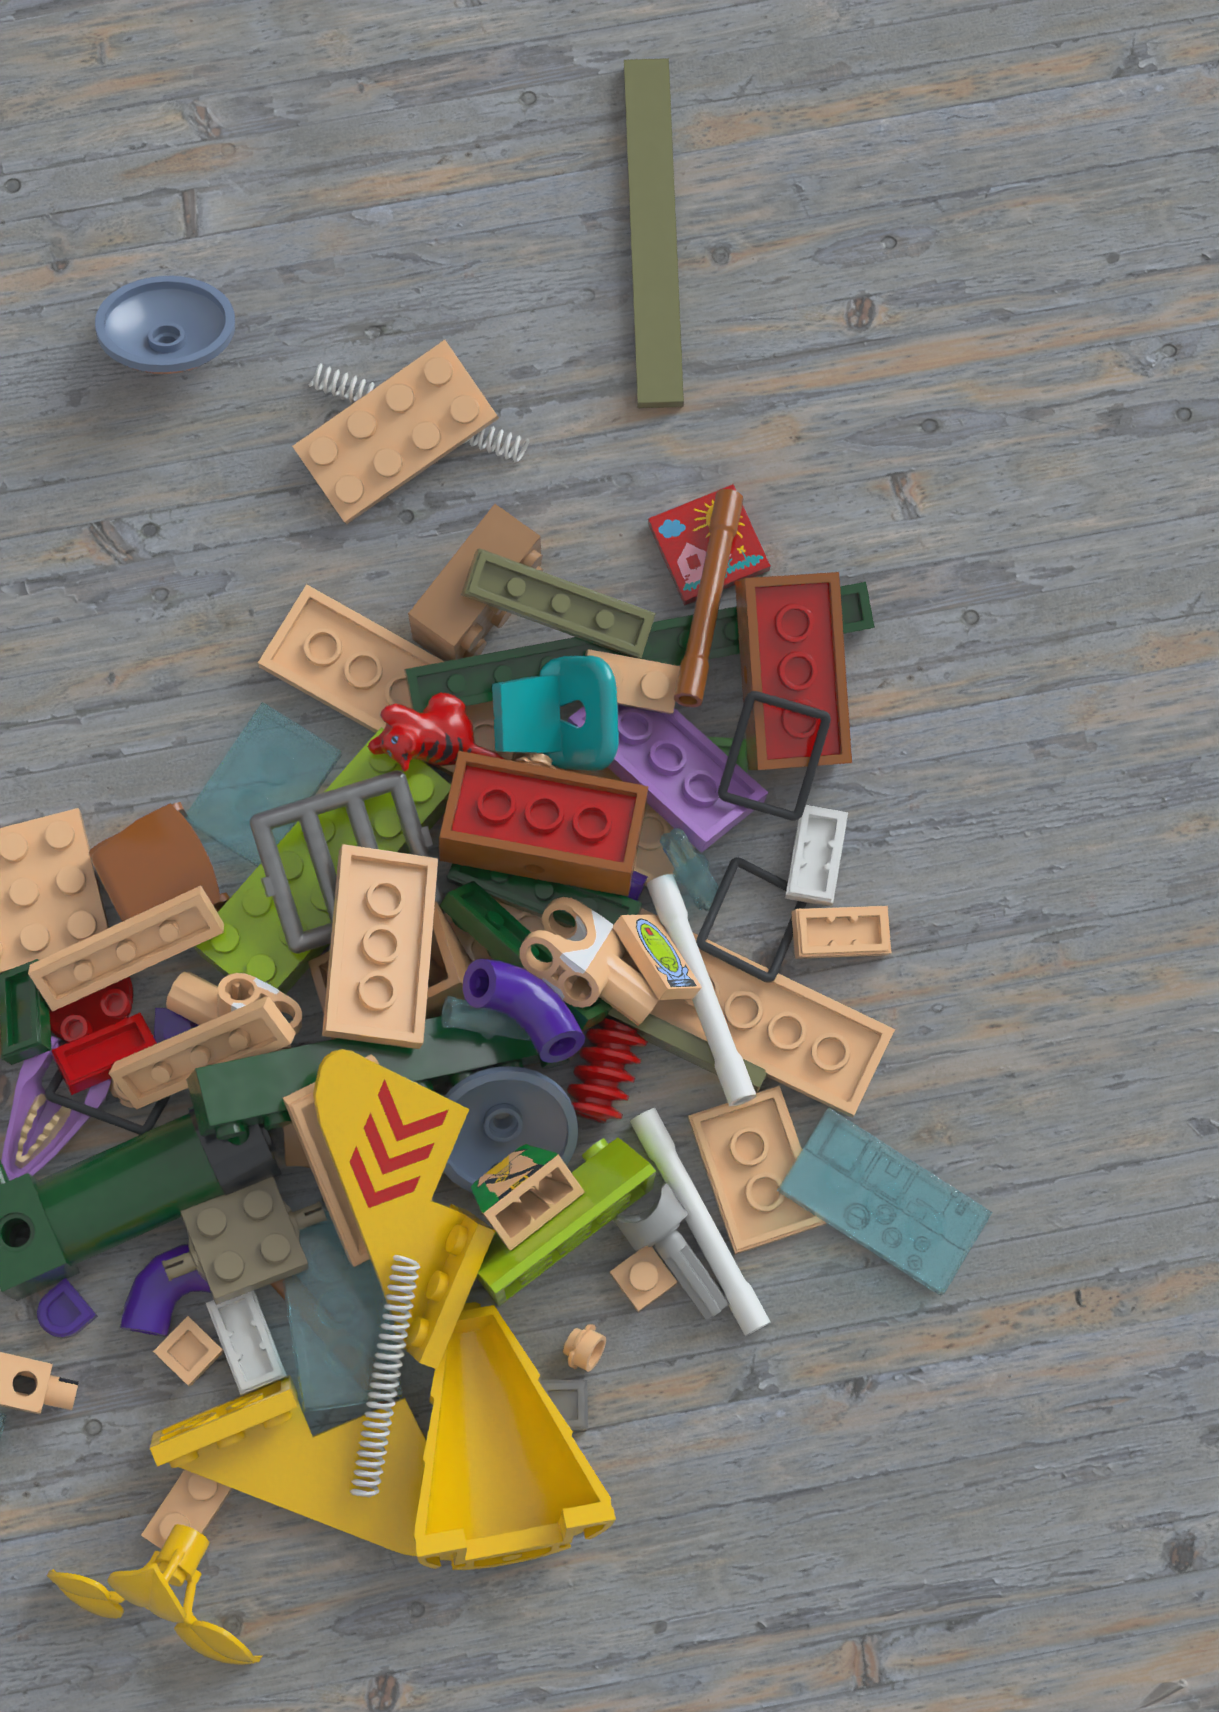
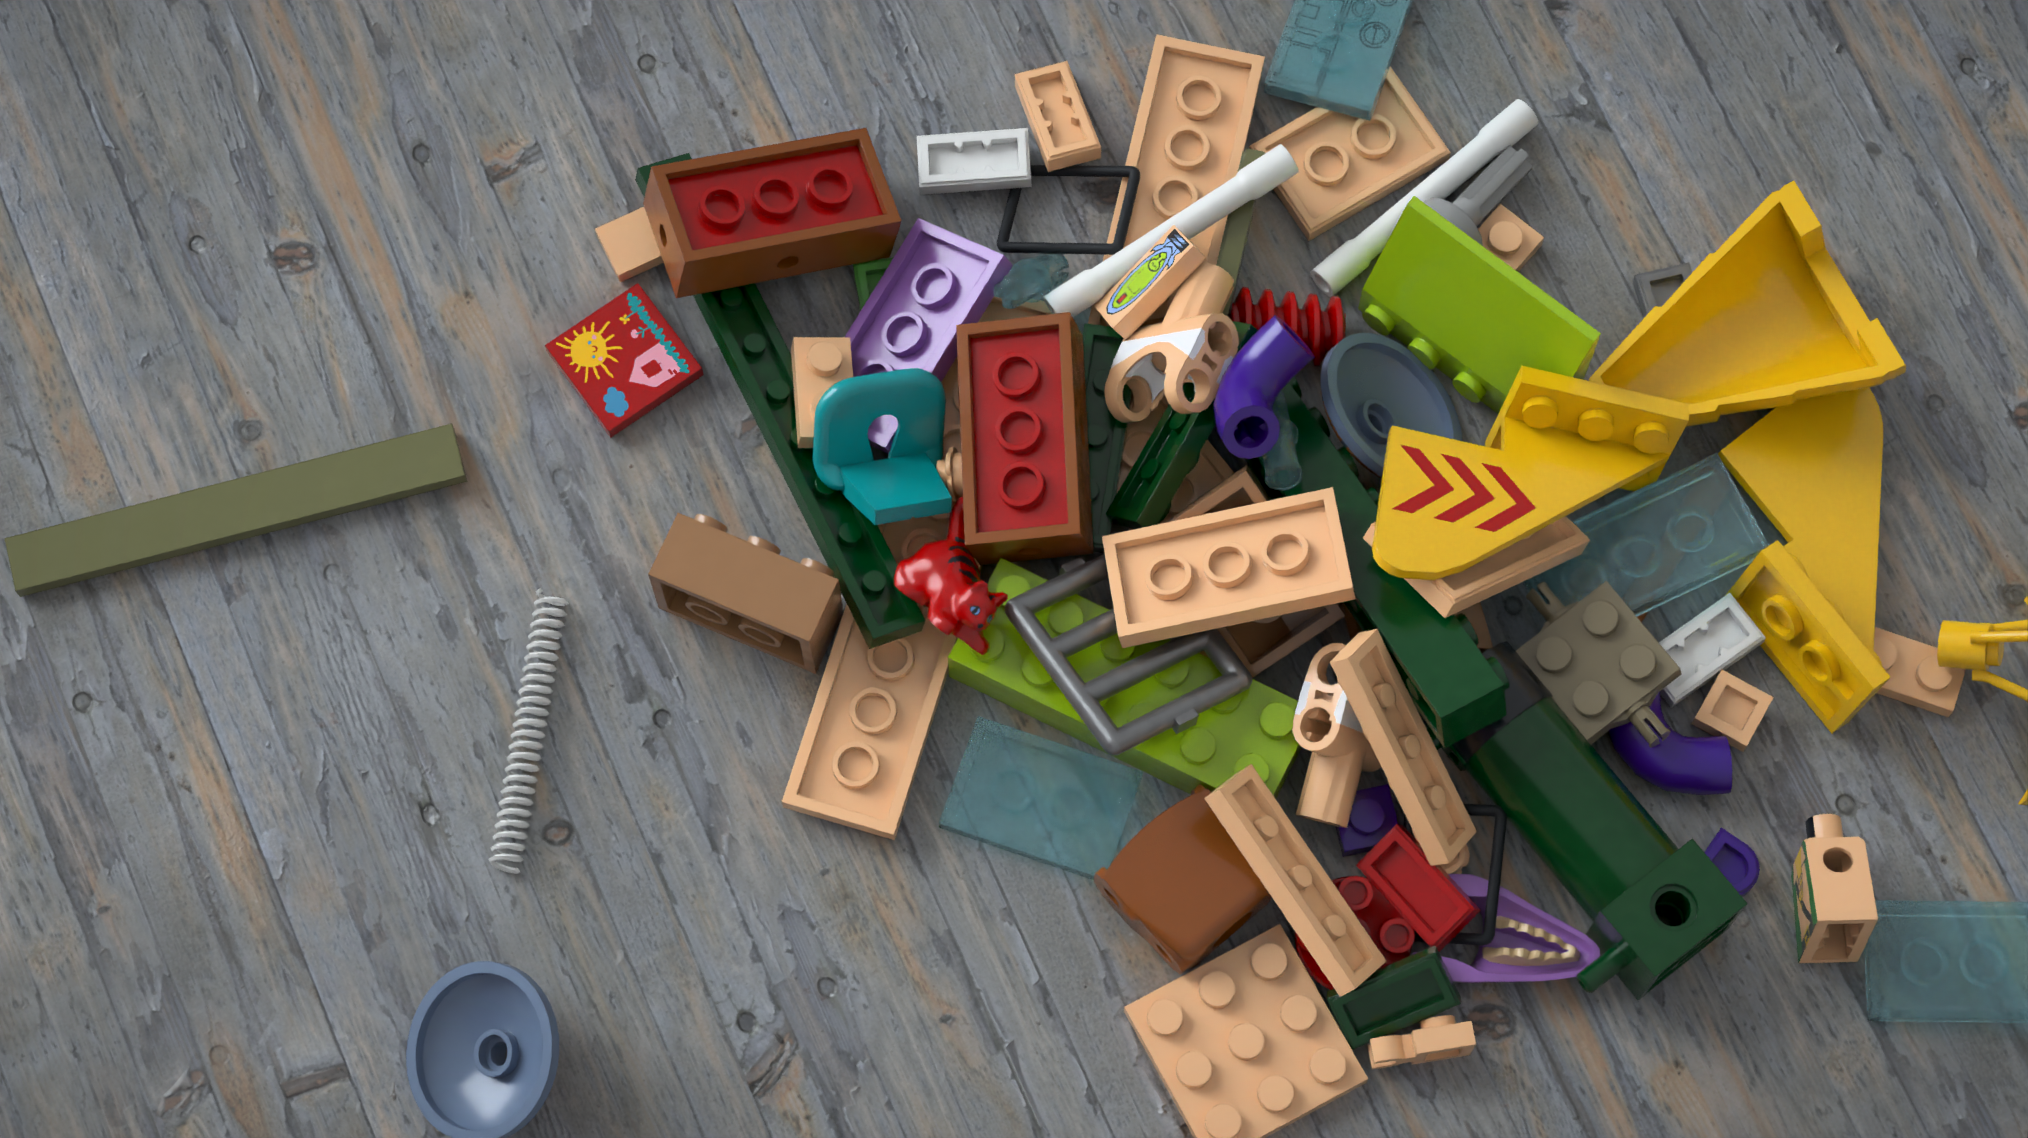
camera: 100 degrees left, 5 degrees down
(390, 1377) = (1705, 463): white piece -> none
(395, 432) = (564, 741): light nougat plate -> none
(525, 1192) = (1463, 355): light nougat torso -> none
(558, 603) = (756, 478): olive tile -> none
(584, 1348) = (1601, 285): light nougat plate -> none
(695, 664) = (792, 314): dark orange piece -> none
(737, 742) = (875, 246): black piece -> none
(806, 560) = (629, 244): none -> light nougat tile

